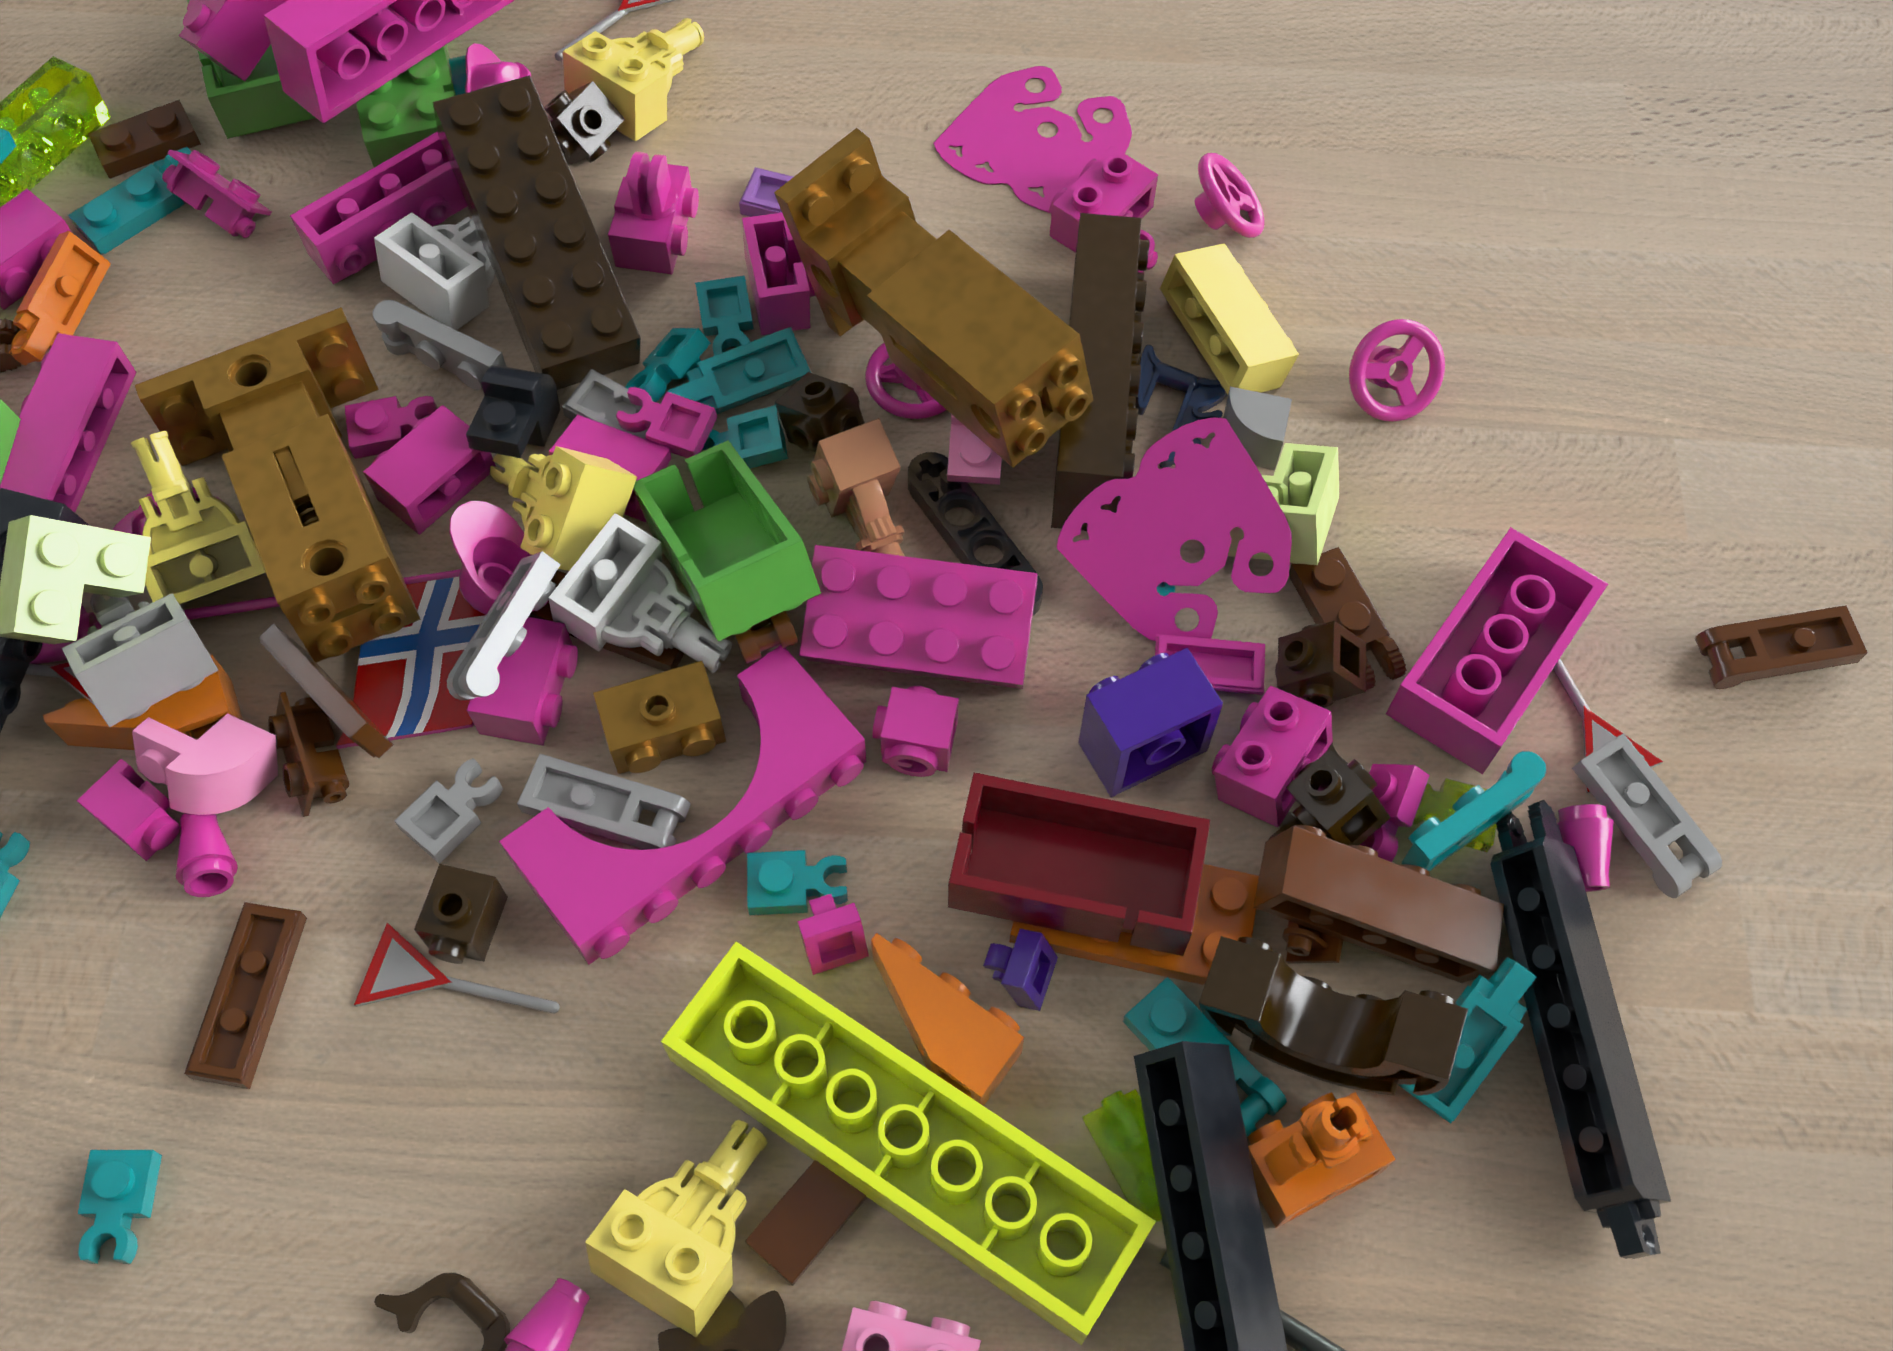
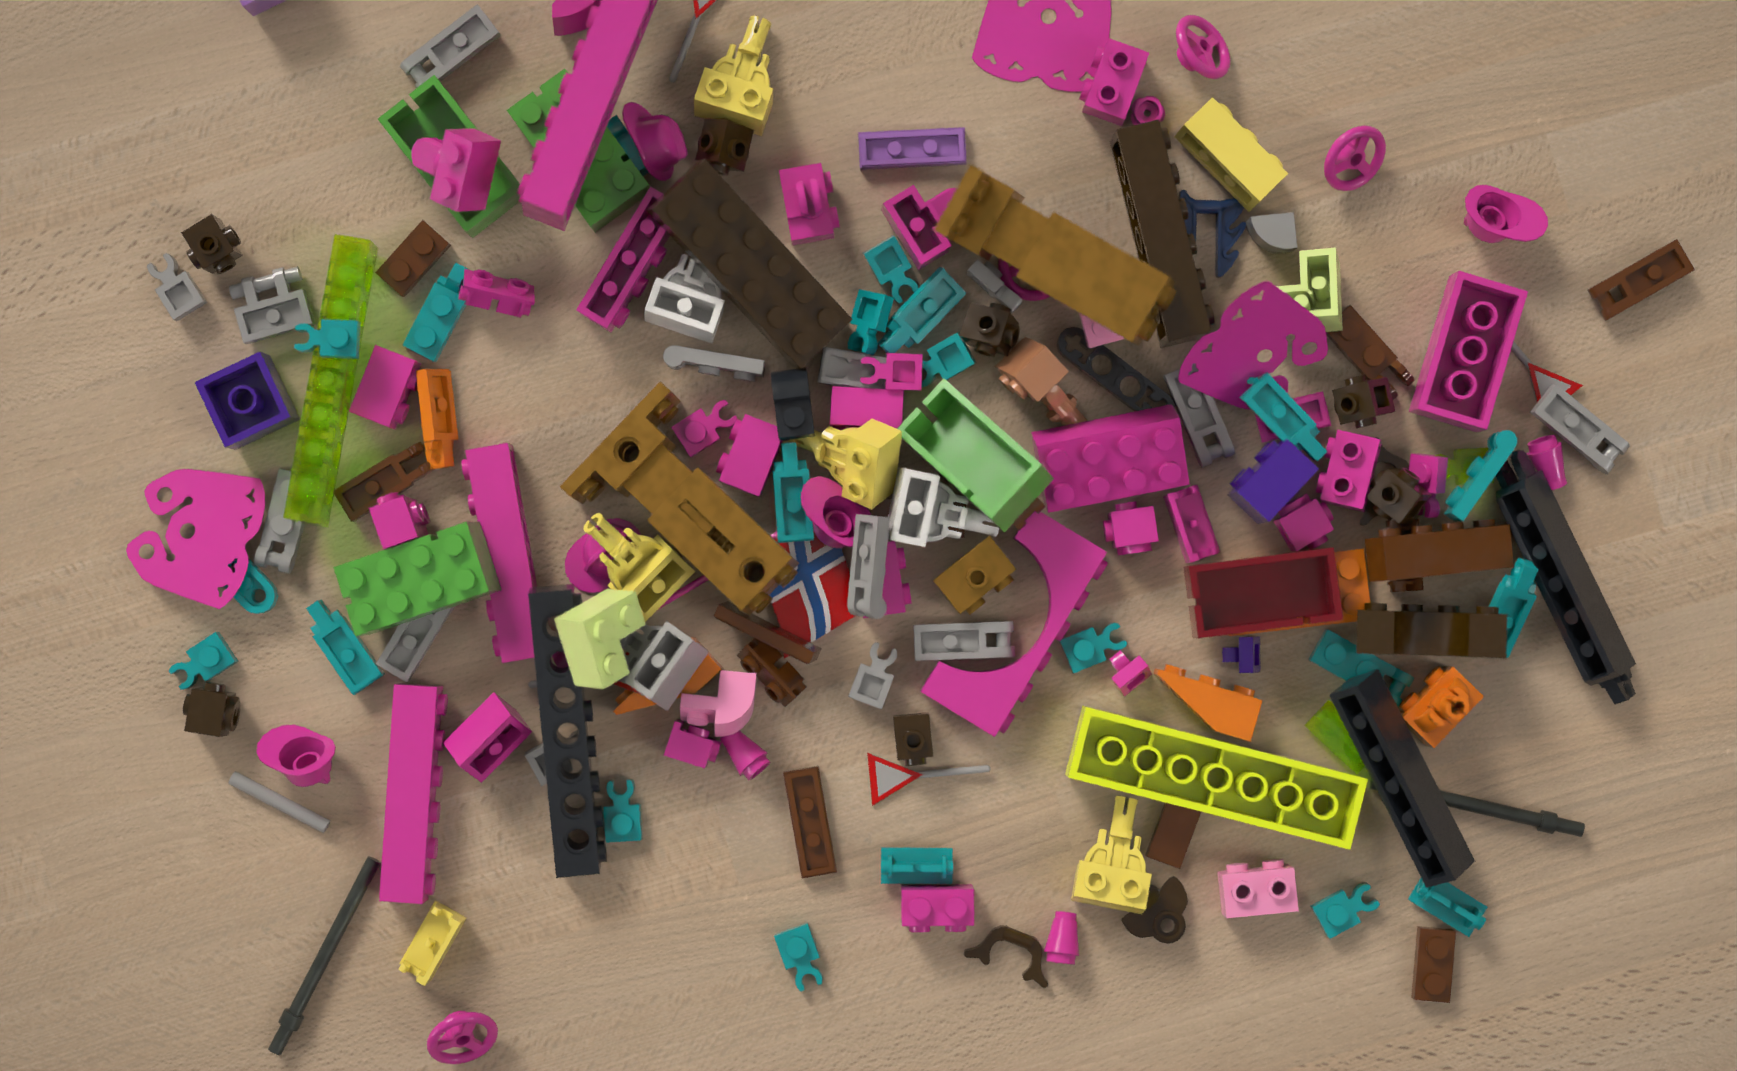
camera: 15 degrees left, 25 degrees up
(365, 1190) = (937, 906): none -> dark pink brick
(369, 1120) = (916, 865): none -> teal hinge
(433, 559) = (788, 483): none -> teal hinge
(847, 365) = (988, 278): none -> light grey plate
(1010, 737) = (1191, 524): none -> dark pink hinge
(1073, 623) = (1200, 419): none -> light grey plate
(1185, 620) = (1283, 415): none -> teal hinge
(1186, 791) = (1304, 523): none -> dark pink brick
(1583, 501) = (1502, 215): none -> dark pink piece

